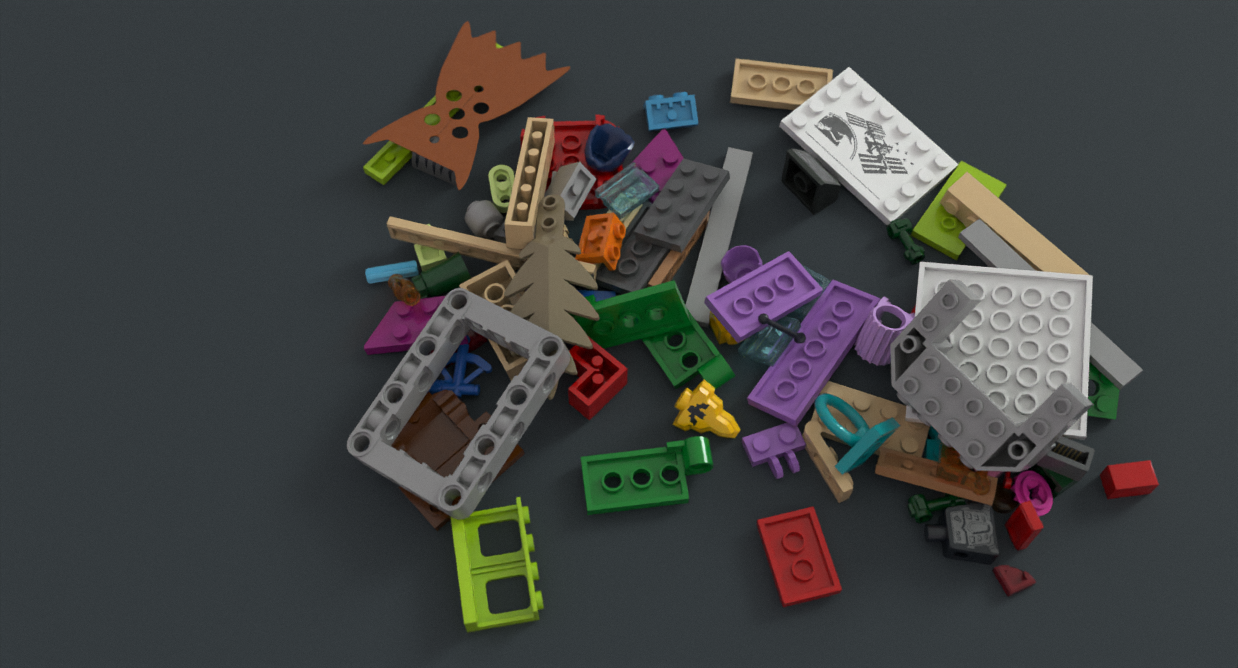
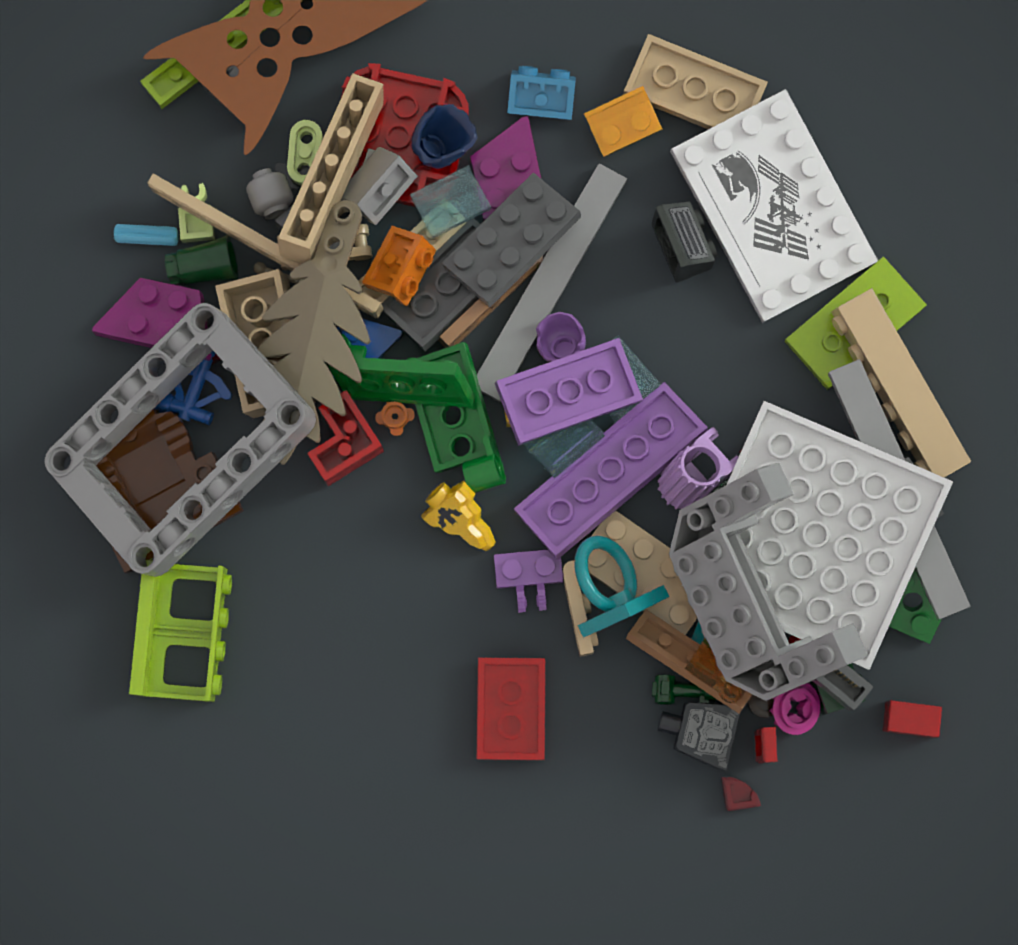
camera: 15 degrees right, 20 degrees up
(404, 289) = (152, 269): clear orange pin -> none
(629, 348) = (395, 425): none -> orange plate
(684, 457) = (420, 562): green hinge -> none
(737, 116) = (623, 121): none -> light orange plate
(798, 337) = (595, 451): black hinge -> none
(901, 229) = (771, 333): dark green bar -> none

